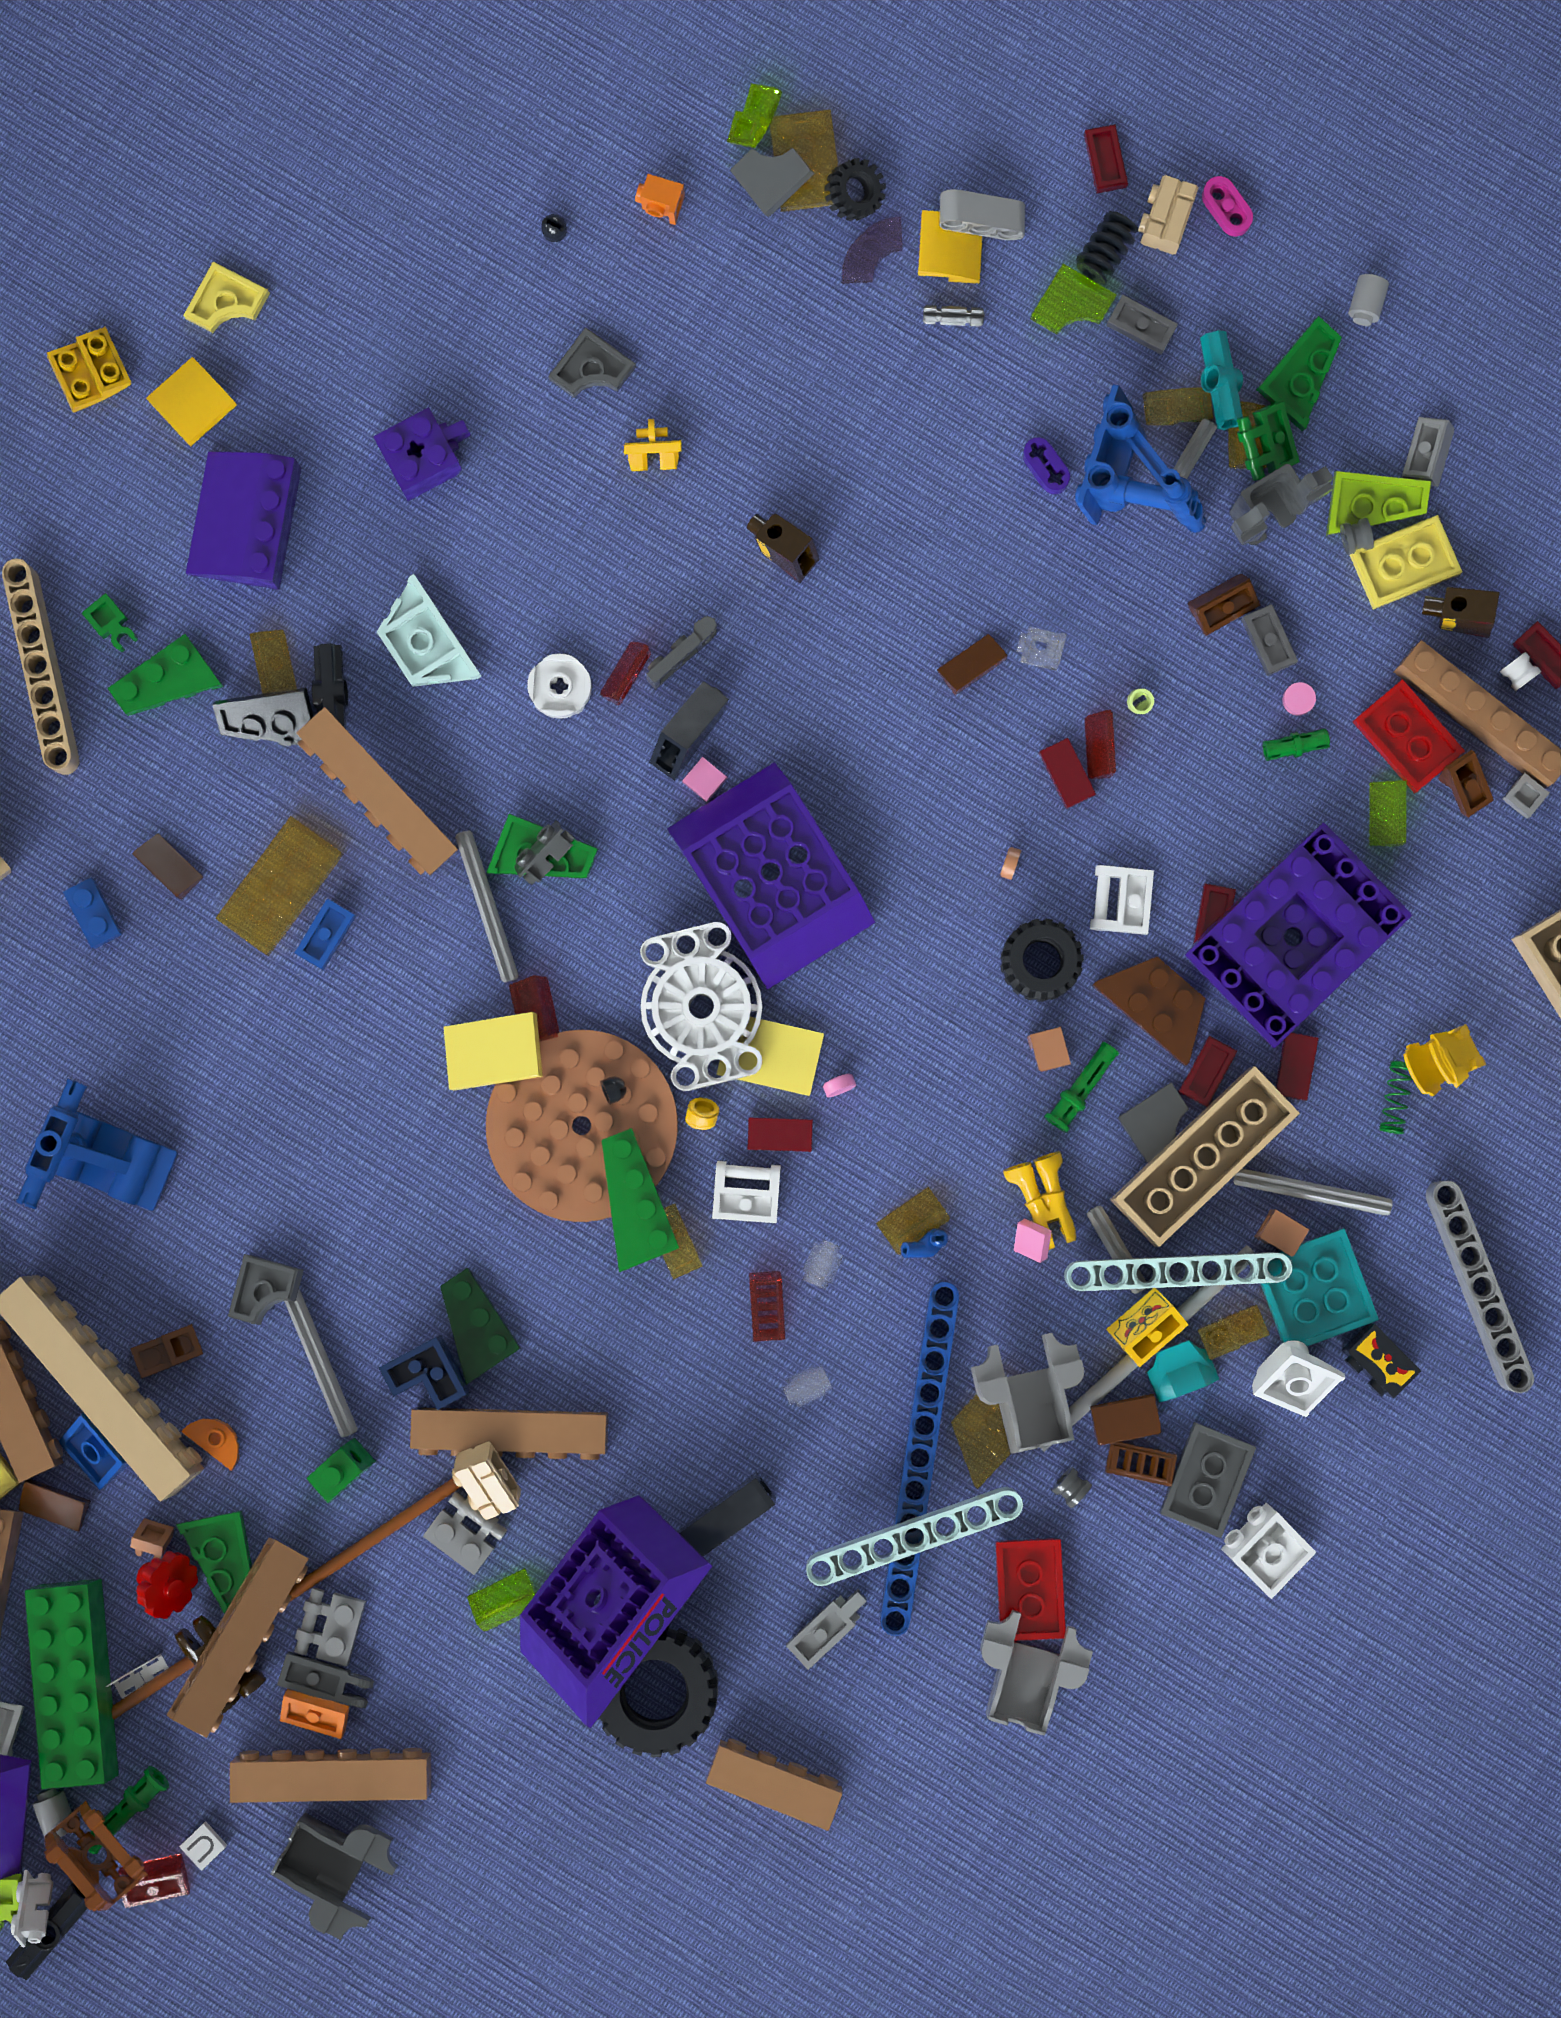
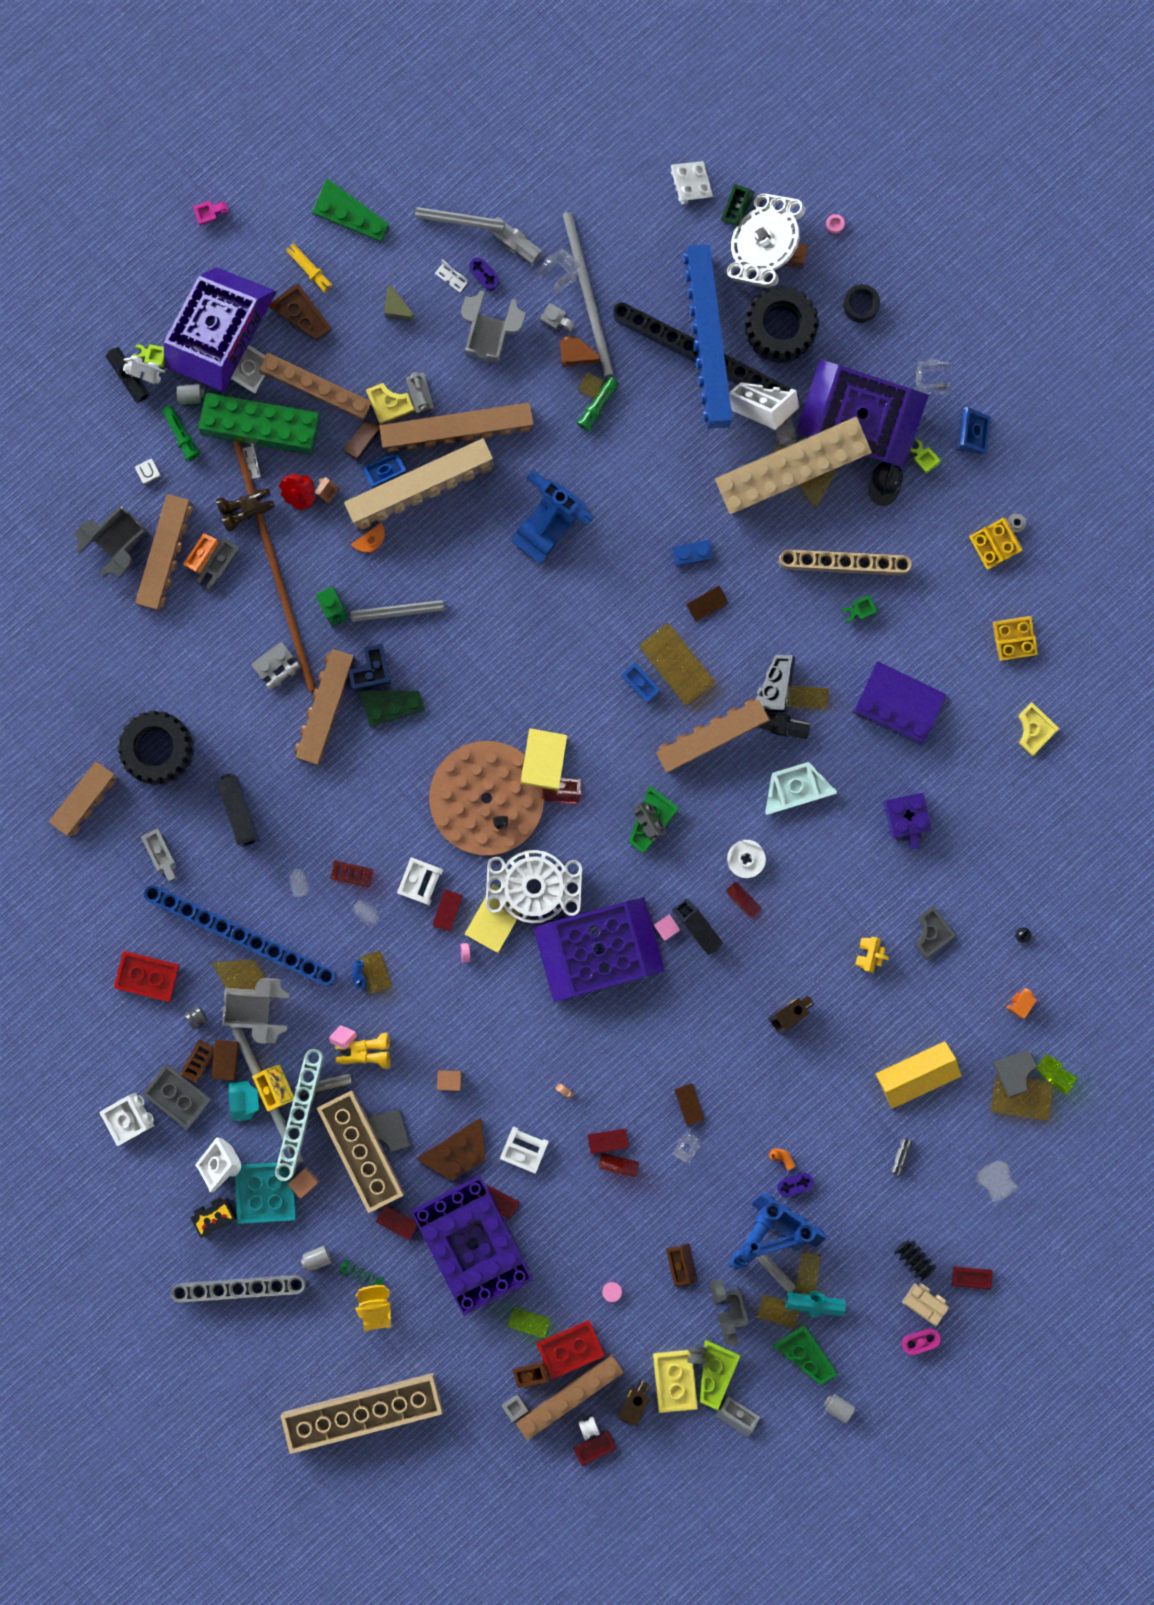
camera: 105 degrees right, 0 degrees up
(86, 1873) = (153, 404): dark orange piece -> none
(164, 1881) = (137, 438): clear red slope -> none
(165, 677) = (818, 632): green wing -> none
(166, 1351) = (428, 526): reddish brown slope -> none
(191, 401) = (977, 692): yellow slope -> none
(221, 1551) = (302, 527): green wing -> none
(238, 1637) = (256, 524): medium nougat brick -> none
(261, 1286) = (449, 590): dark grey tile -> none
(340, 1627) = (242, 579): light grey plate -> none
(486, 906) = (623, 780): light grey axle -> none
(486, 1481) = (300, 686): tan brick -> none
(502, 1600) = (231, 676): clear neon green slope -> none
(636, 1209) = (430, 815): green wing -> none
(643, 1583) = (220, 758): dark purple slope -> none
(683, 651) = (746, 937): dark grey hinge -> none
(686, 1257) = (404, 831): clear yellow slope -> none
(702, 1113) = (472, 869): yellow tile -> none
(817, 325) = (918, 1074): none -> yellow slope
(840, 197) = (993, 1131): black tyre -> none
(870, 249) = (957, 1120): clear purple tile -> none
(901, 1548) = (191, 909): light aqua beam -> none
(947, 157) = (996, 1180): none -> clear piece
(948, 252) = (943, 1167): yellow slope -> none
(982, 215) = (956, 1191): light grey beam -> none
(1007, 496) = (783, 1156): none -> orange arm
(1029, 1676) = (99, 960): light grey piece -> none
(1061, 940) = (490, 1104): black tyre -> none
(1072, 299) = (891, 1230): clear neon green tile -> none
(1074, 1099) = (416, 1086): green pin -> none
(1141, 324) = (863, 1267): flat silver plate -> none
(1142, 707) = (634, 1197): yellowish green hinge -> none
(1207, 1071) = (410, 1169): dark red tile -> none
(1233, 1331) = (256, 1137): clear yellow slope -> none
(1269, 640) = (651, 1284): flat silver plate -> none
(1275, 438) = (769, 1324): green plate -> none
(1296, 744) = (585, 1281): green pin -> none
(1313, 1192) = (322, 1209): light grey axle -> none
(1394, 1176) = (316, 1259): none -> light grey brick

